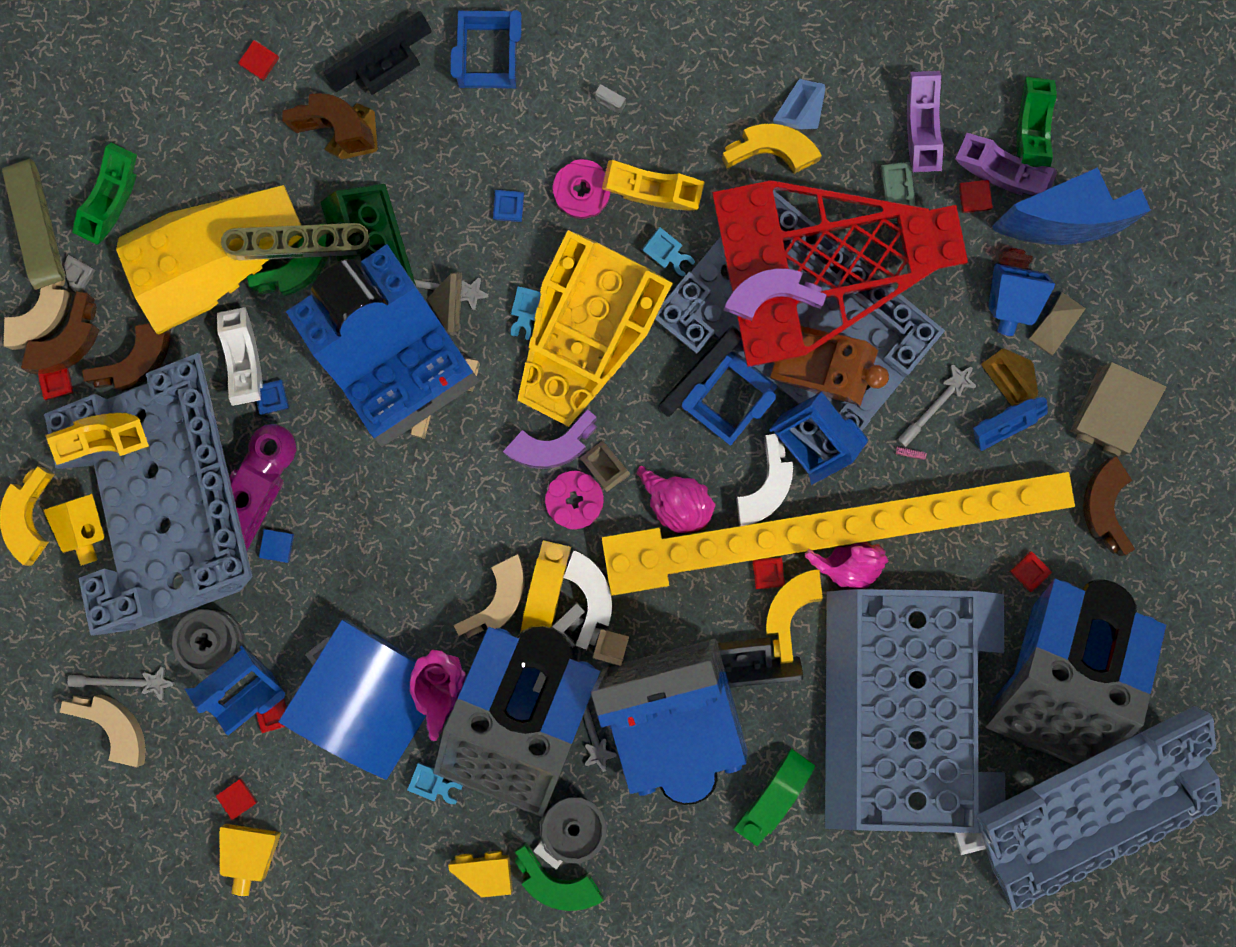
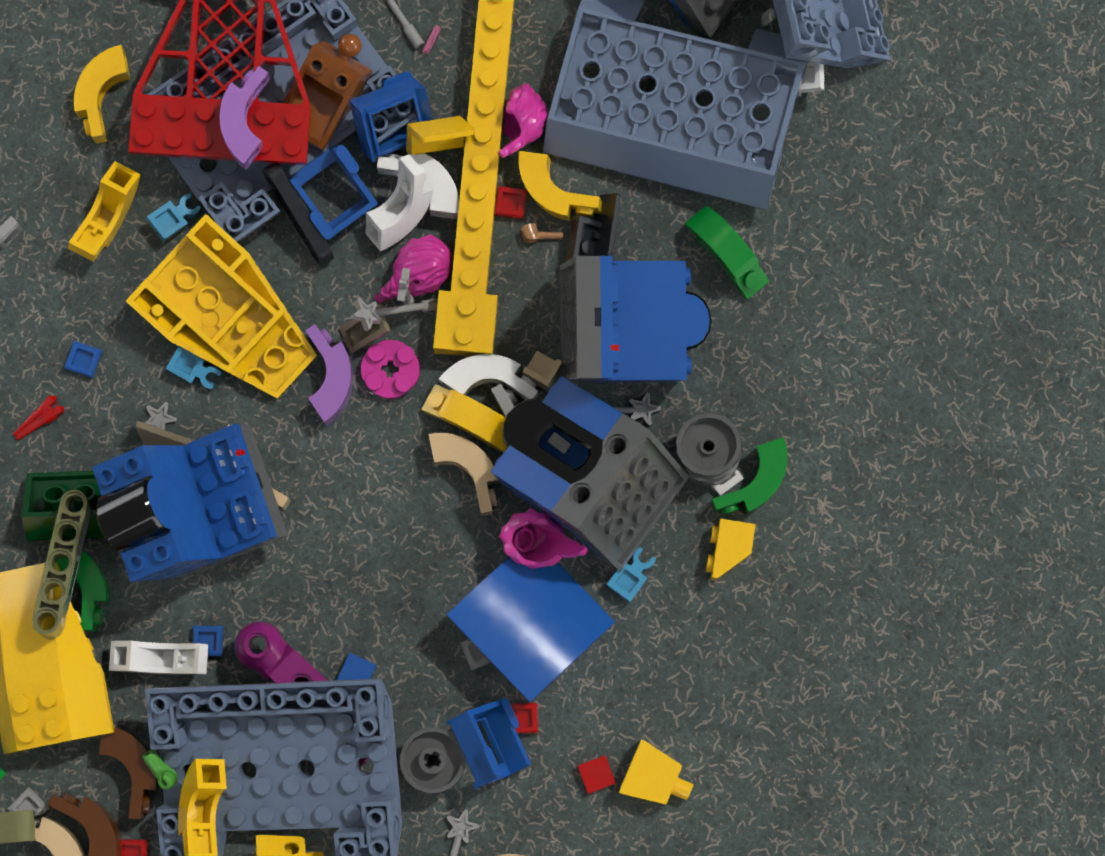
camera: 85 degrees left, 5 degrees down
(128, 394) = (165, 775): none -> bright green arm
(444, 182) = (41, 416): none -> red piece
(568, 199) = (93, 299): dark pink plate -> none
(614, 467) = (369, 314): none -> light grey piece
(644, 496) = (403, 293): none -> light grey piece
(731, 470) = (404, 207): none -> white arch
(742, 601) = (531, 234): none -> medium nougat hand
(802, 106) = (66, 52): medium blue slope -> none
(813, 485) = (437, 135): none -> yellow panel

